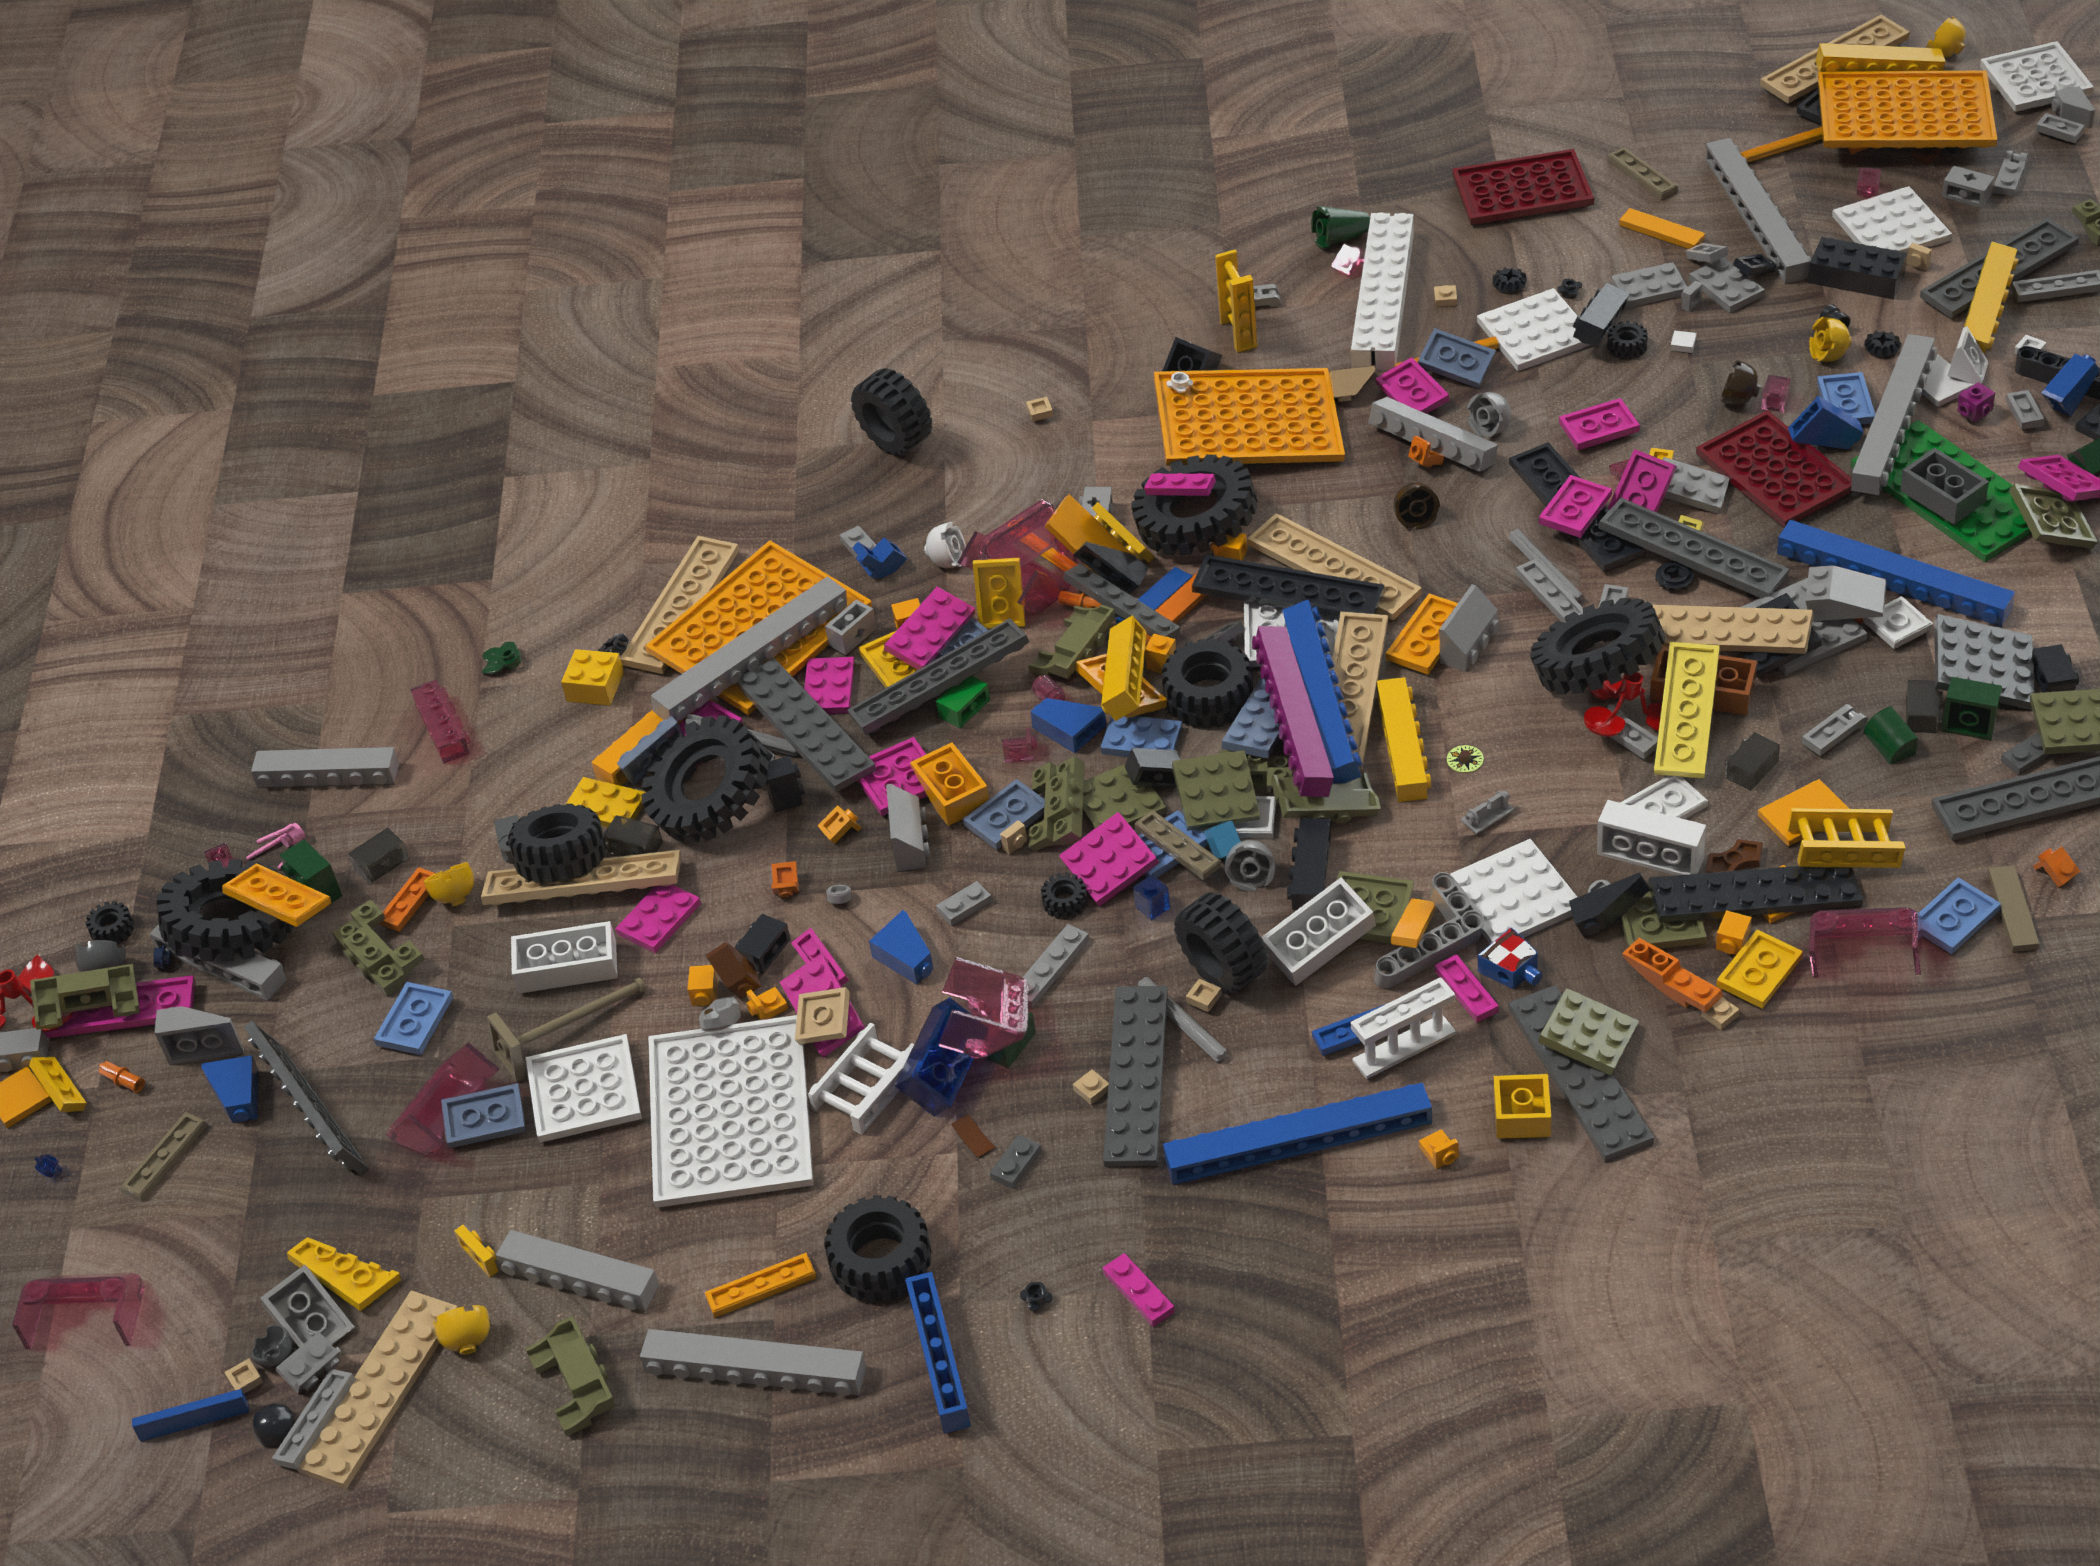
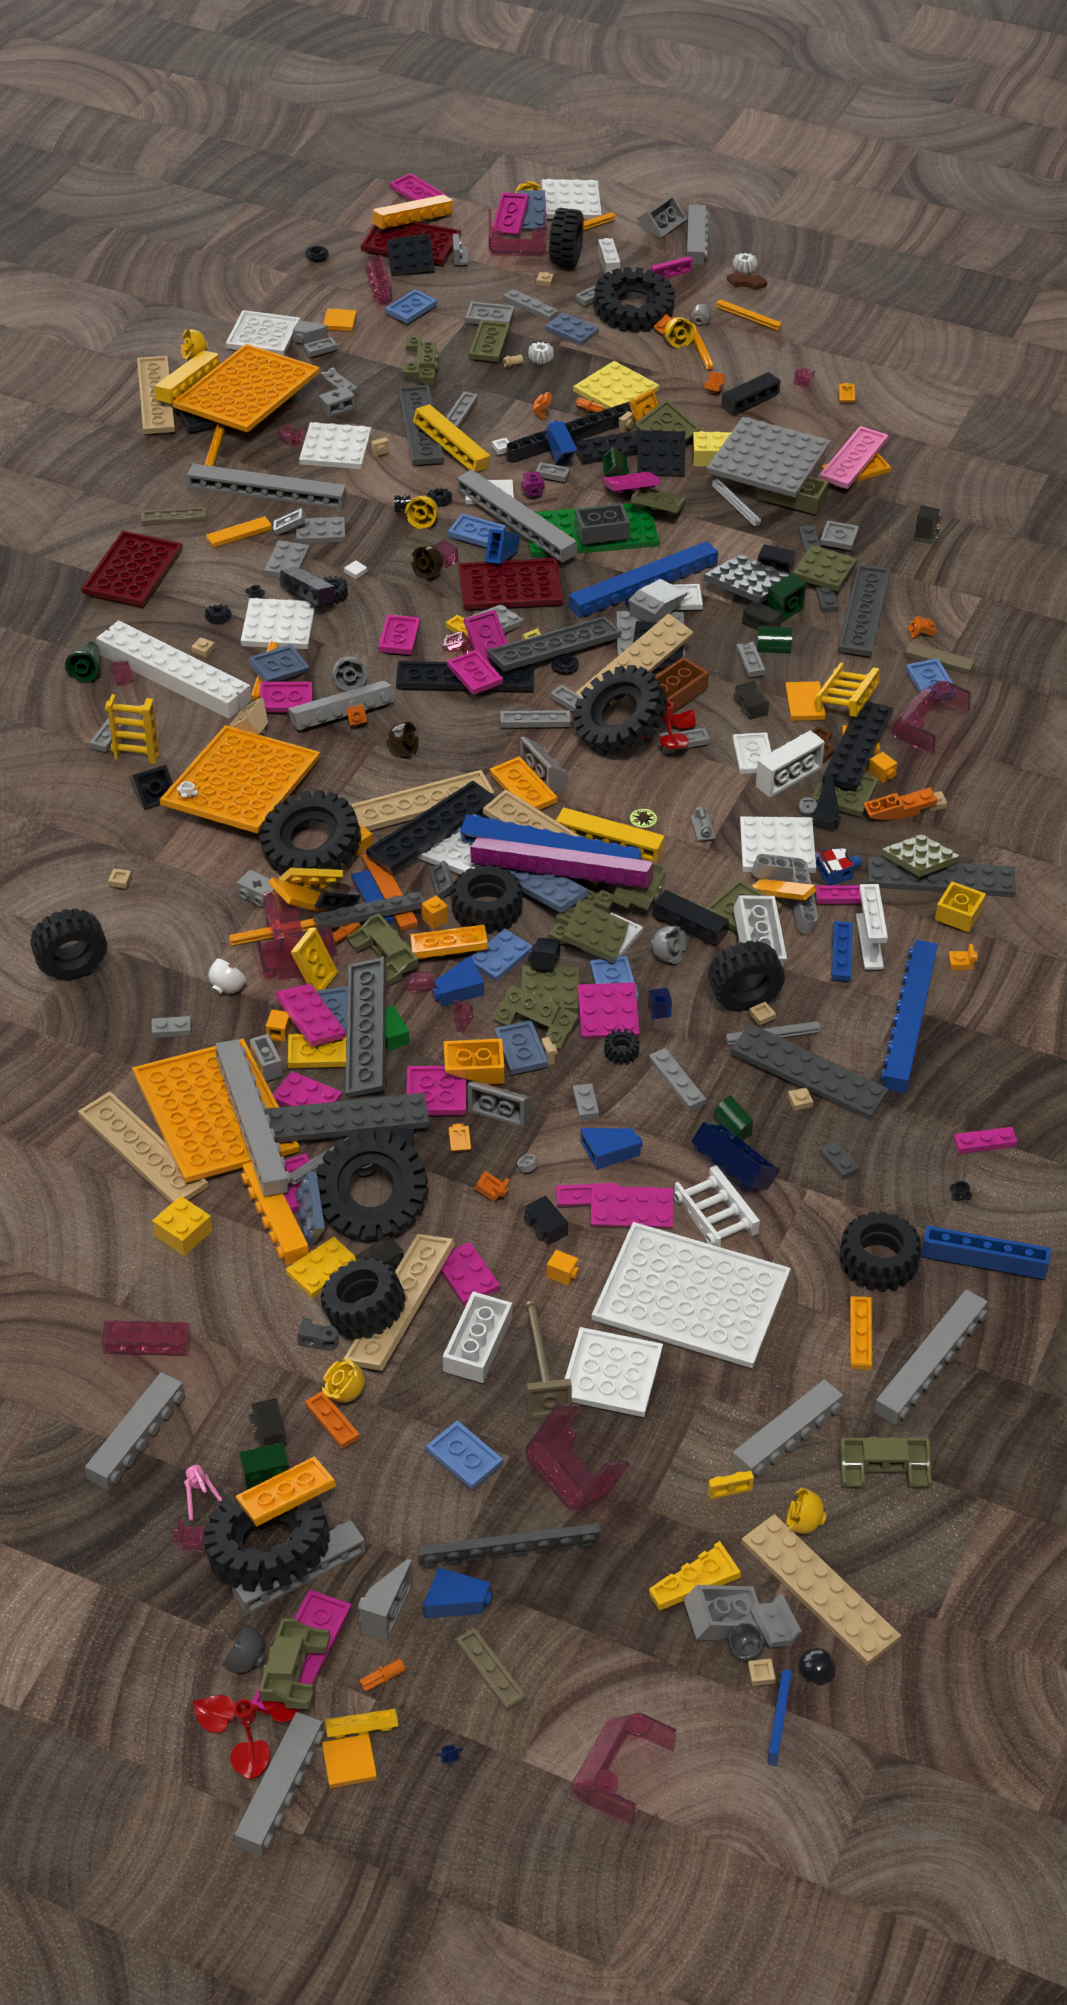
camera: 70 degrees left, 0 degrees up
(108, 913) = (197, 1625): black tyre -> none
(161, 957) = (266, 1609): dark blue plate -> none
(313, 1419) = (830, 1636): light grey plate -> none
(371, 953) = (374, 1460): olive bracket -> none
(483, 1115) = (598, 1438): sand blue plate -> none
(504, 657) = (100, 1279): dark green plate -> none
(616, 644) = (161, 1194): black gear -> none
(720, 1013) = (602, 1265): light grey rock -> none
(734, 970) = (572, 1240): reddish brown slope -> none
(766, 1004) = (603, 1240): light orange bracket -> none
(822, 1015) = (654, 1203): tan plate -> none
(881, 560) = (203, 1017): blue brick -> none
(972, 1136) = (802, 1175): reddish brown sticker -> none
(990, 994) = (733, 1110): clear pink windscreen -> none
(1124, 668) = (450, 926): yellow brick -> none
(1178, 845) = (625, 970): dark tan tile -> none
(1180, 484) = (295, 829): dark pink plate -> none
(1222, 839) = (637, 948): dark azure brick -> none
(1533, 552) = (489, 712): light grey axle -> none
(1687, 710) = (702, 701): light yellow plate -> none
(1691, 296) = (320, 546): light grey plate -> none
(1754, 264) = (321, 509): black plate -> none
(1759, 968) = (917, 770): yellow plate -> none
(1857, 268) = (367, 472): black brick -> none
(1968, 359) = (492, 469): white slope -> none

